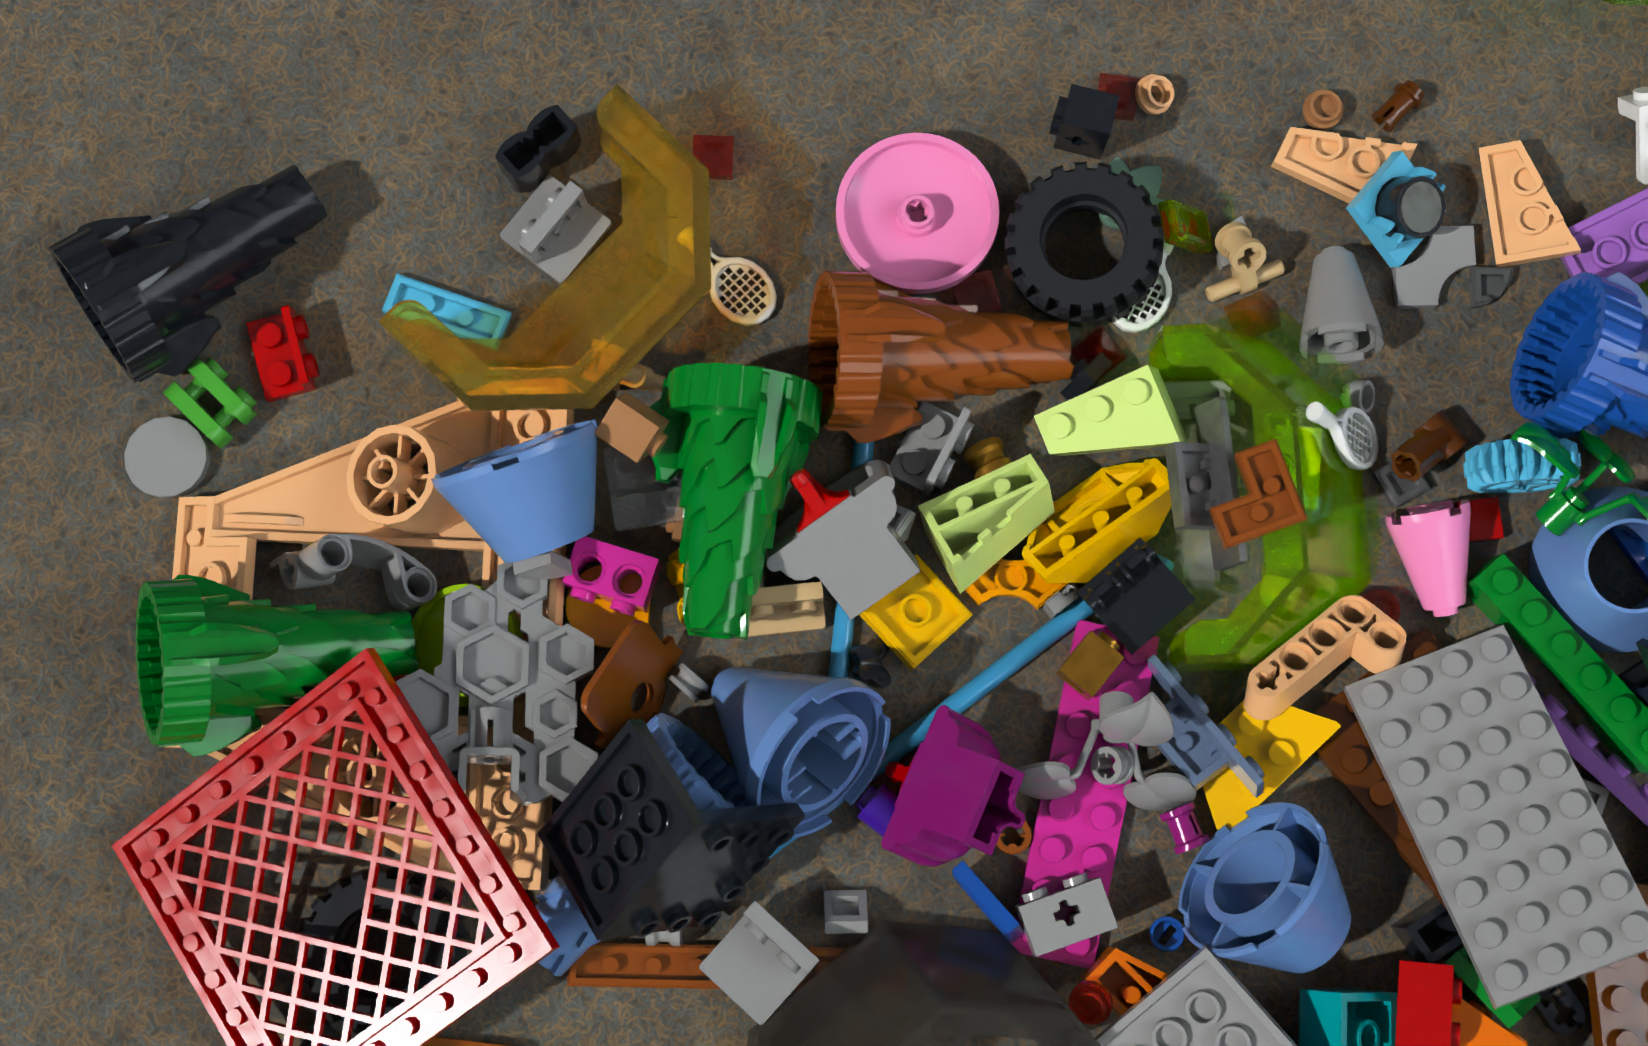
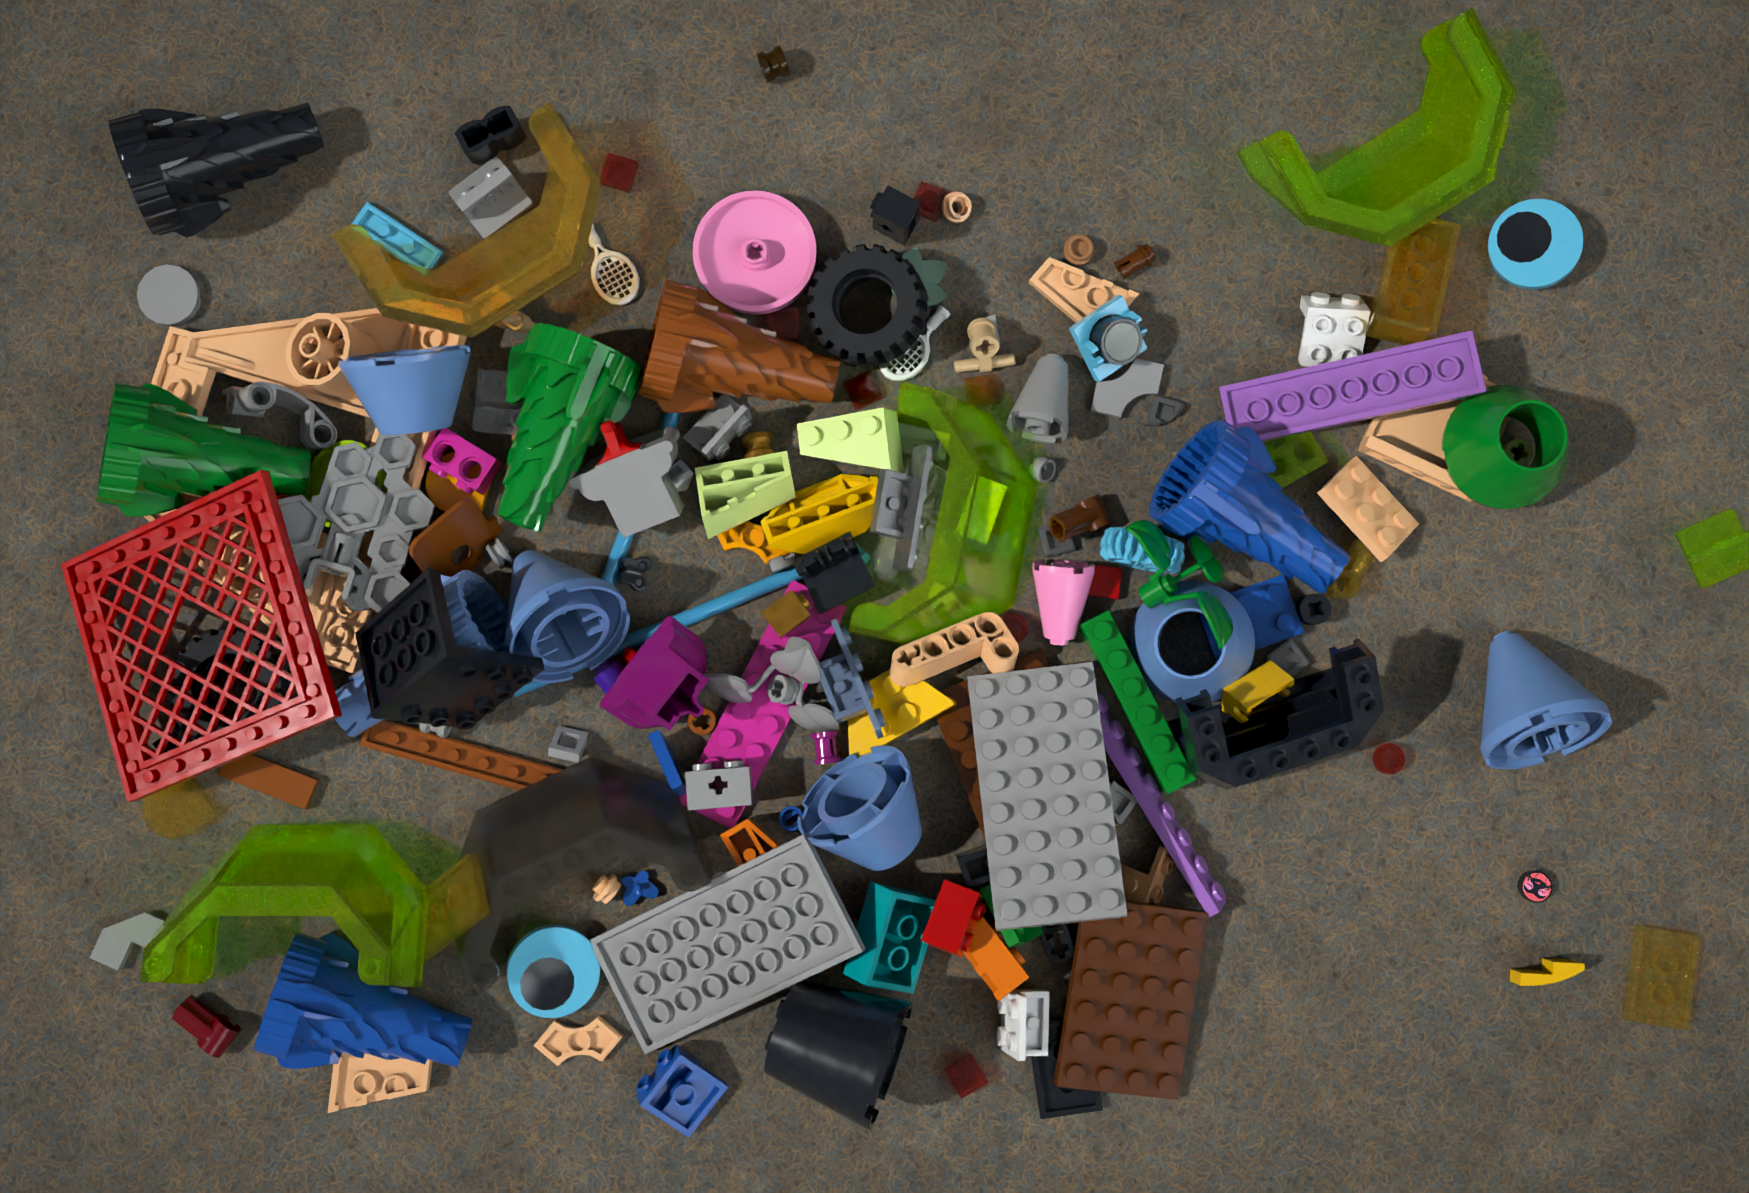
camera: 15 degrees right, 5 degrees up
(211, 377) = (213, 246): bright green brick -> none
(282, 355) = (270, 241): red bracket -> none
(543, 566) = (410, 443): light grey tile -> none
(633, 428) = (493, 359): medium nougat brick -> none
(758, 963) = (495, 764): light grey bracket -> none
(787, 609) = (580, 518): tan bracket -> none
(917, 616) = (676, 546): yellow tile -> none
(1085, 375) = (845, 403): black plate -> none
(1091, 1002) = (717, 852): clear red plate -> none
(1185, 227) = (947, 312): clear neon green tile -> none
(1270, 501) = (938, 532): dark orange tile -> none
(1351, 434) = (1014, 492): white piece -> none
(1520, 210) = (1201, 361): light nougat wing -> none

